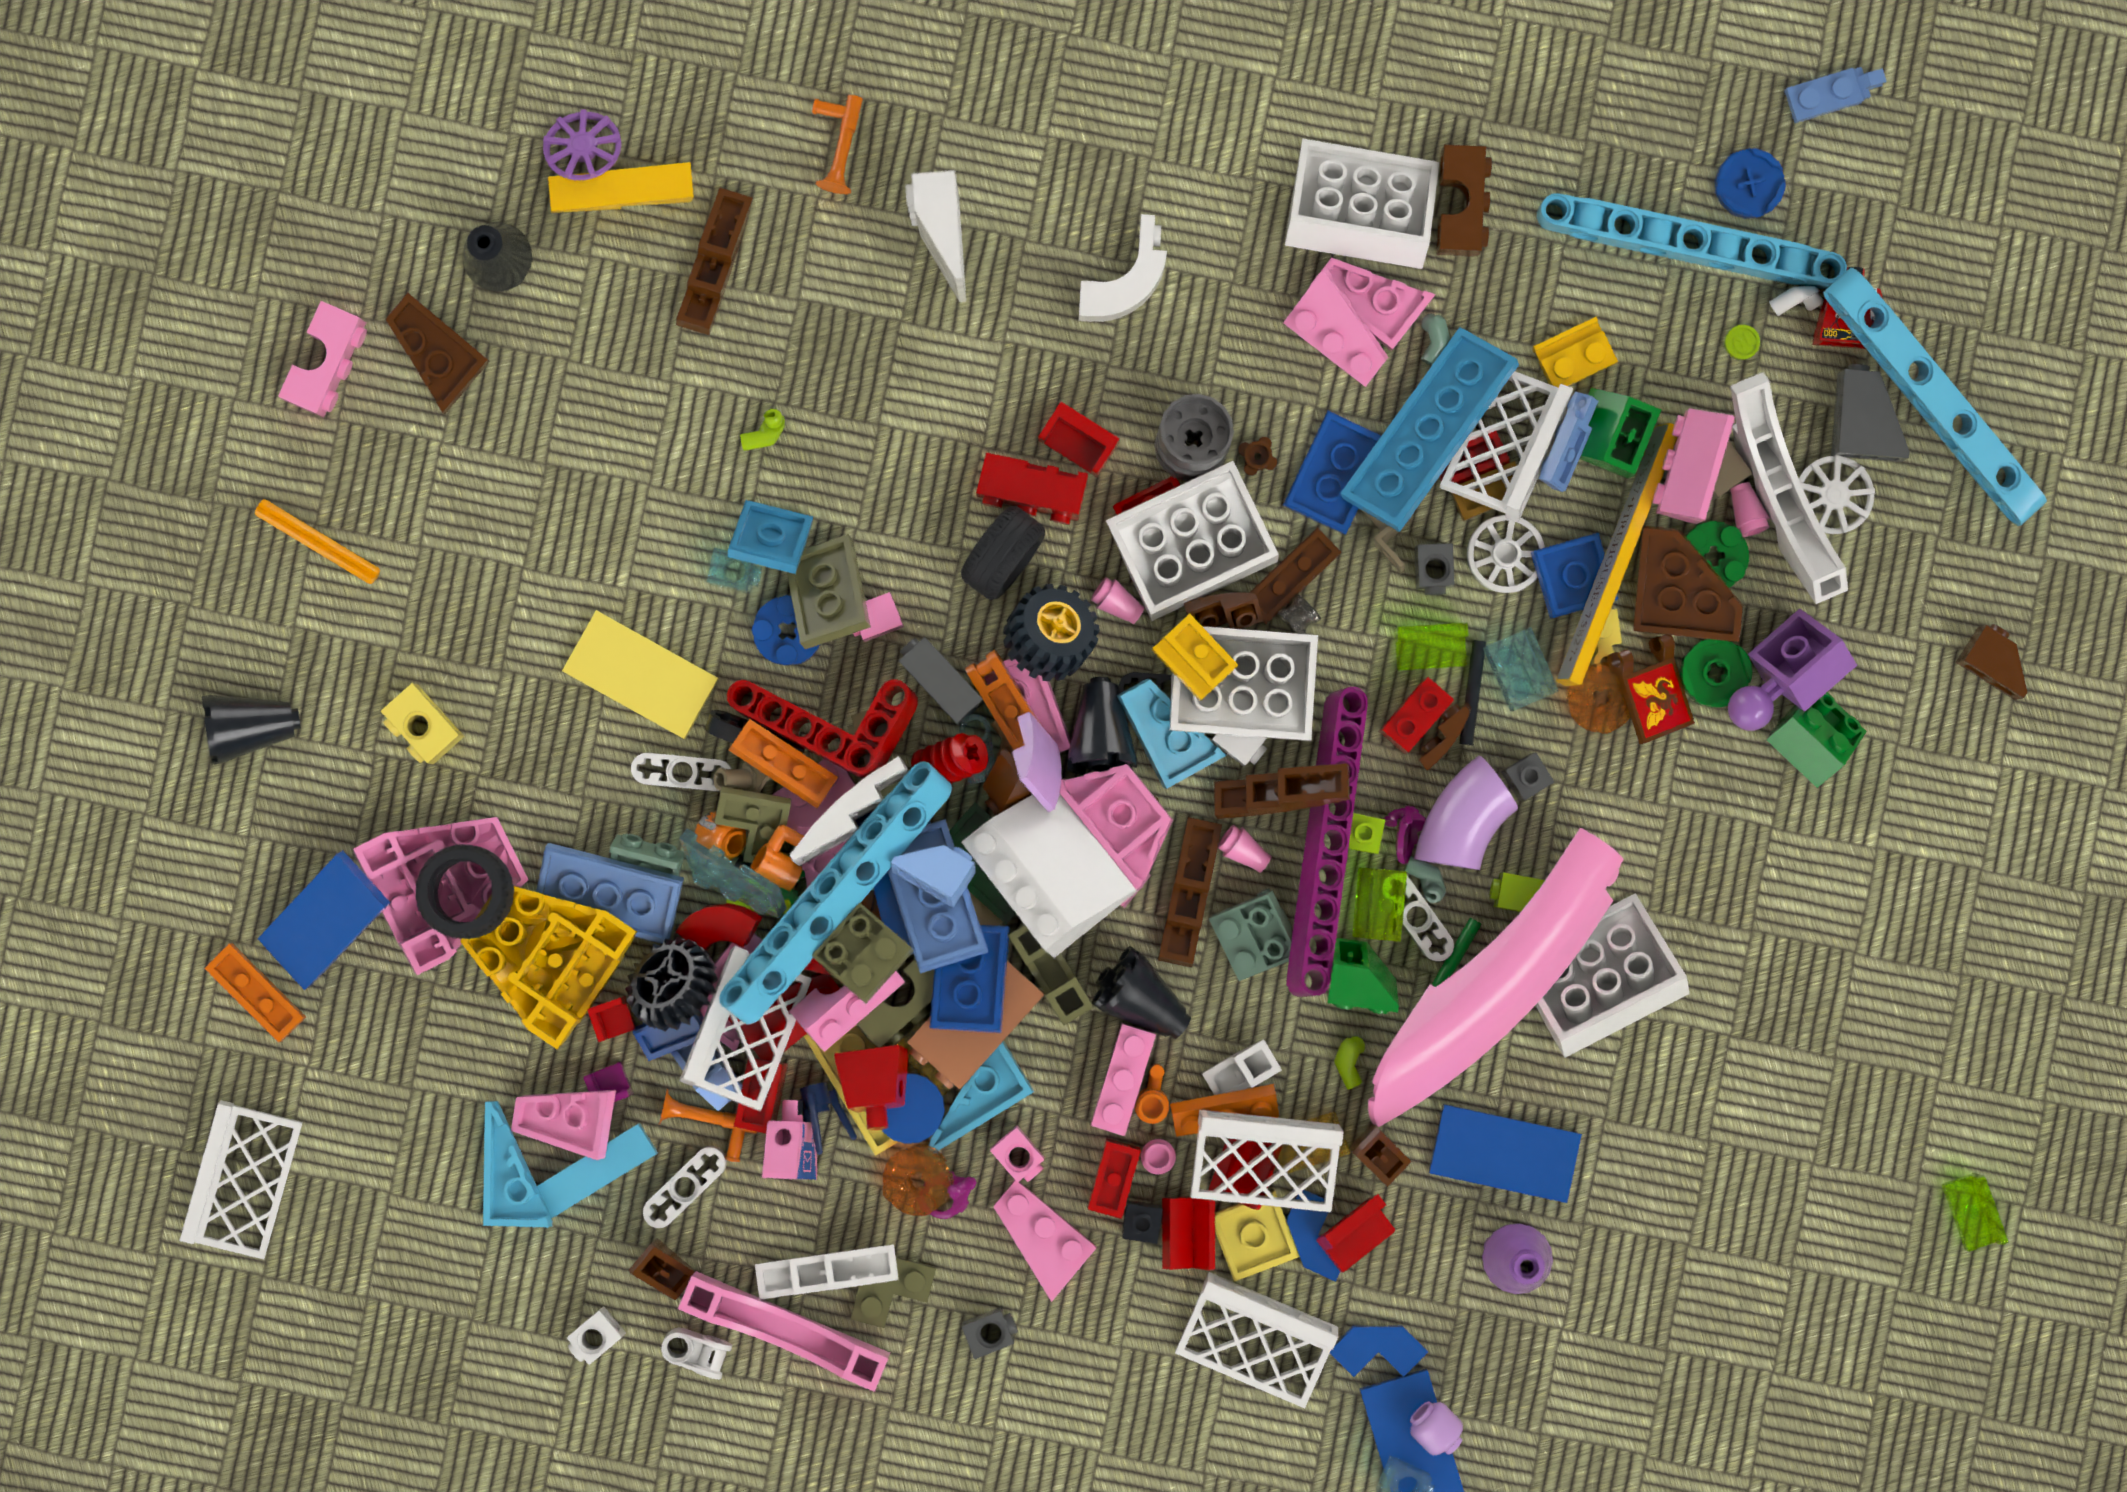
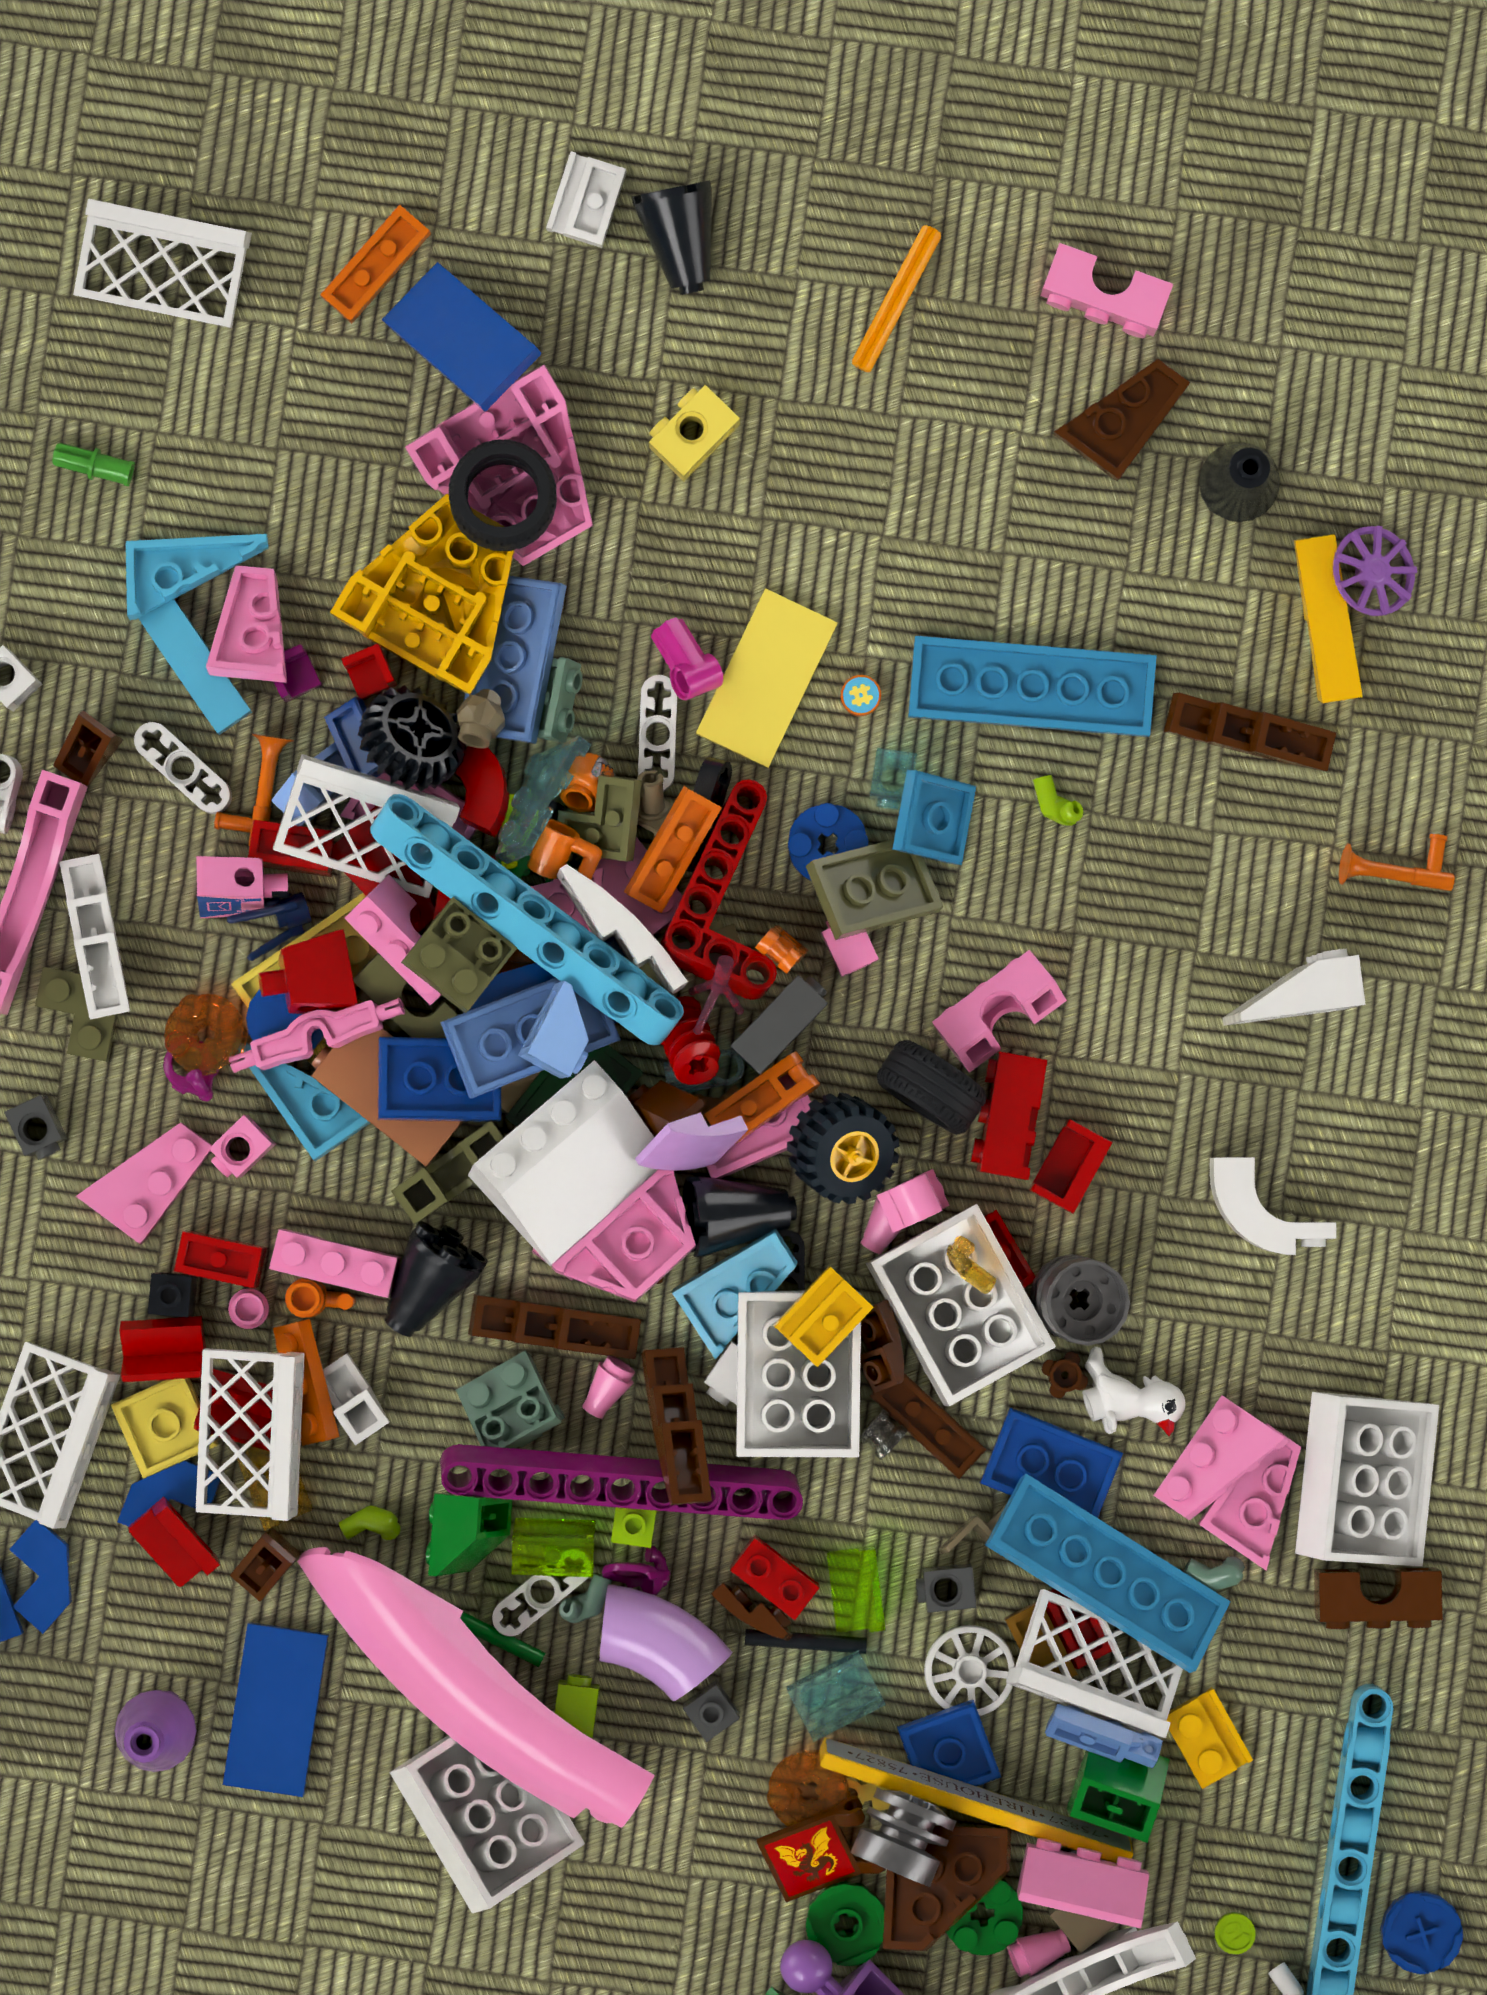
camera: 90 degrees right, 0 degrees up
(211, 805) = (586, 199): none -> white plate
(413, 1250) = (93, 463): none -> bright green axle
(628, 739) = (690, 669): none -> dark pink piece
(658, 923) = (480, 718): none -> dark tan rock
(660, 594) = (860, 695): none -> tile
(662, 445) = (1032, 686): none -> dark azure plate
(875, 674) = (781, 948): none -> orange plate
(903, 730) = (718, 986): none -> clear pink plant
(922, 473) = (1019, 987): none -> bright pink arch
(929, 1100) = (296, 1041): none -> bright pink piece
(1100, 575) = (913, 1200): none -> bright pink plate
(1161, 531) = (967, 1268): none -> clear yellow arm
(1281, 411) = (1119, 1400): none -> white animal
(1644, 616) = (903, 1836): none -> flat silver wheel

